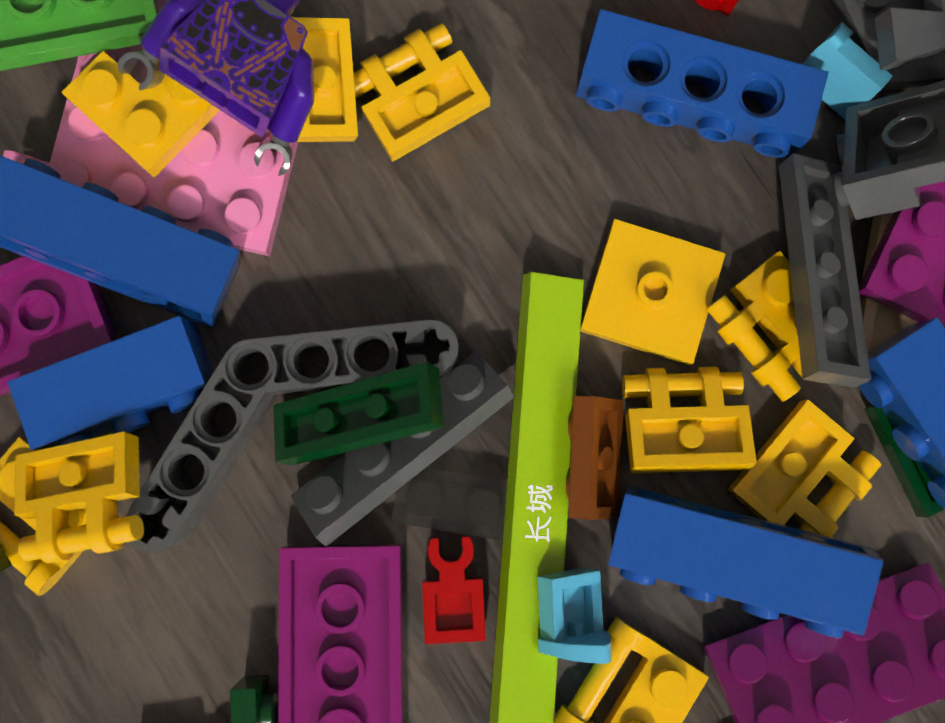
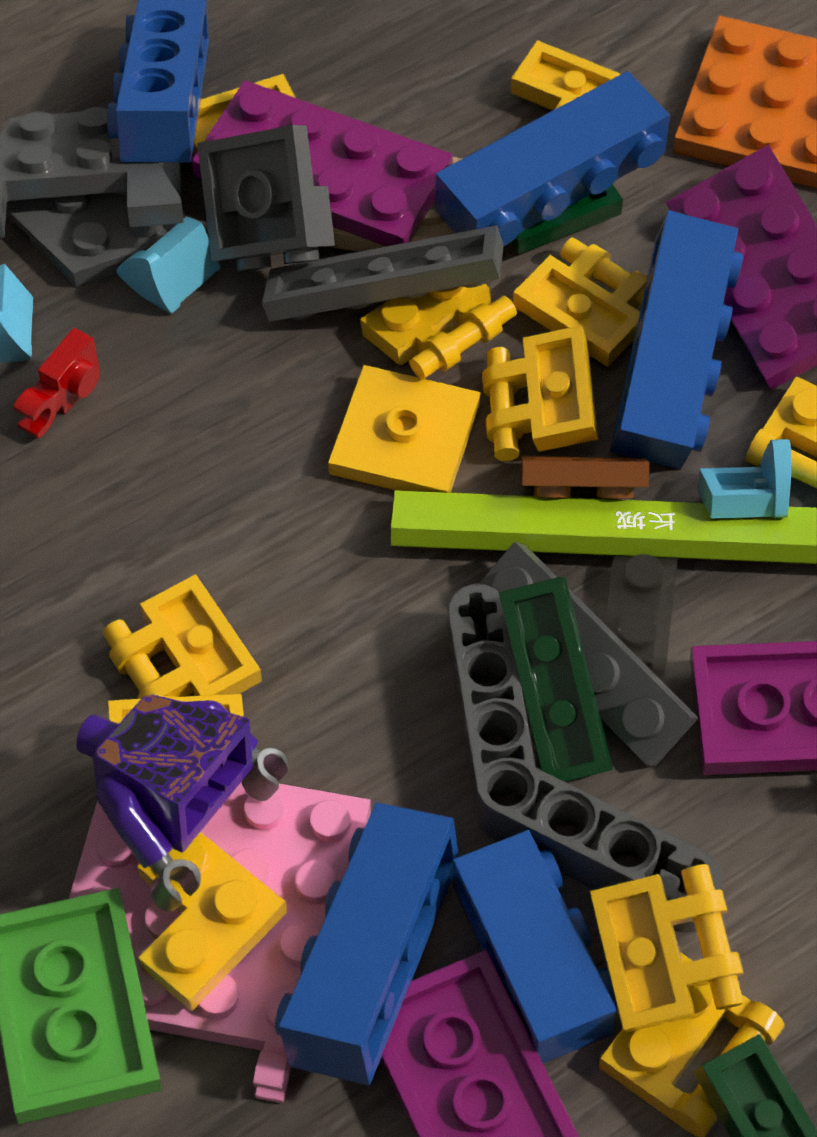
camera: 90 degrees left, 25 degrees down
(453, 602) = (745, 599): red plate -> none
(785, 89) = (199, 309): blue brick -> none

